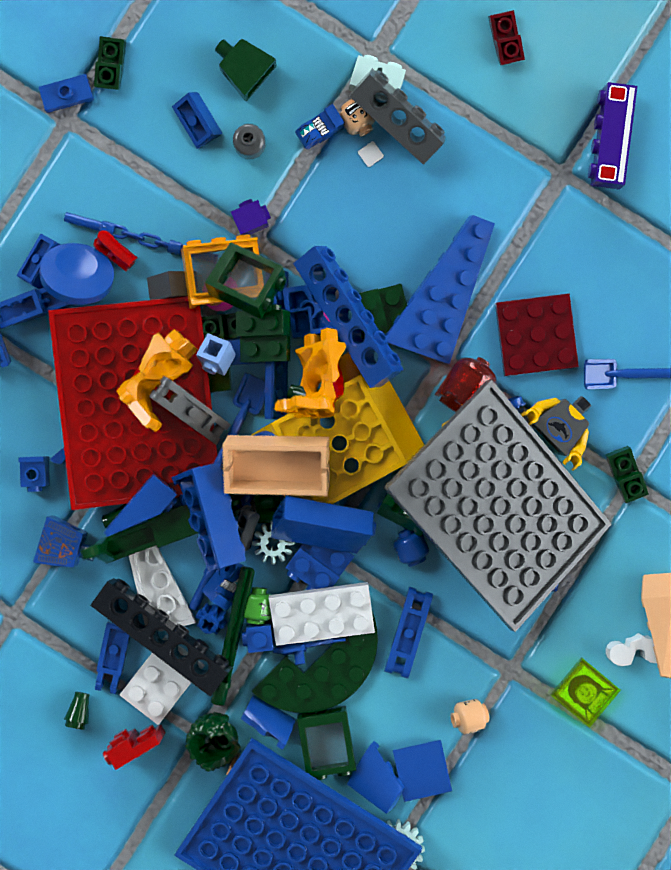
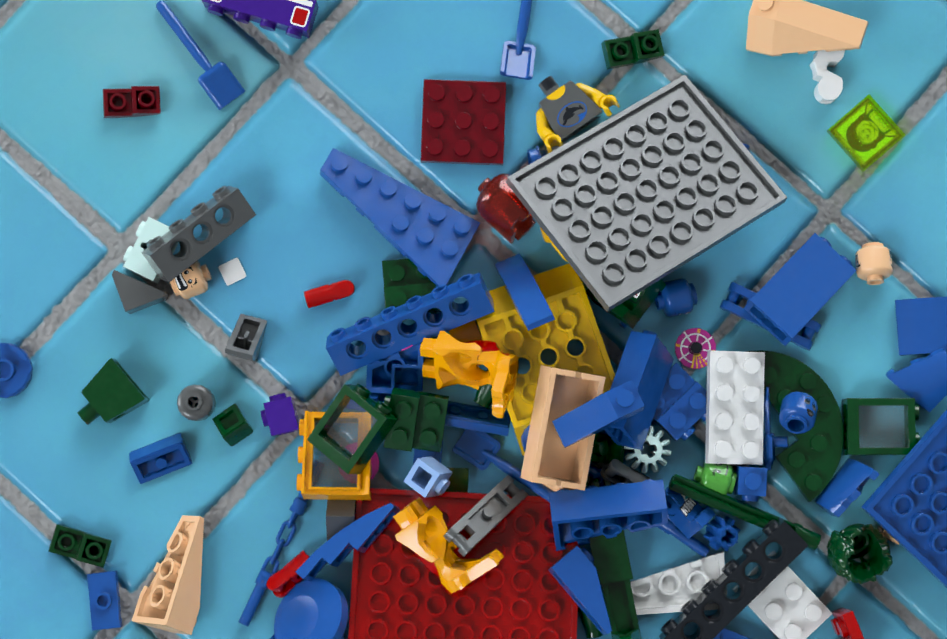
camera: 80 degrees left, 5 degrees down
(81, 152) = (175, 591): none -> light nougat wedge
(154, 300) = (356, 535): none -> blue slope
(220, 325) = (395, 468): dark green slope -> none
(235, 177) = (232, 425): none -> dark green slope
(291, 494) = (599, 413): none -> blue slope
(313, 176) = (246, 338): none -> dark grey slope
(320, 127) = (194, 321): blue leg -> none
(325, 670) = (798, 412): none -> blue head
(336, 71) = (136, 294): none -> dark grey slope
(365, 241) = (328, 293): none -> red bar
(370, 569) = (693, 346): none -> dark pink piece
(392, 412) = (524, 292): none -> blue slope
(436, 655) = (800, 289): none -> blue brick
(538, 110) = (217, 80): none -> blue piece

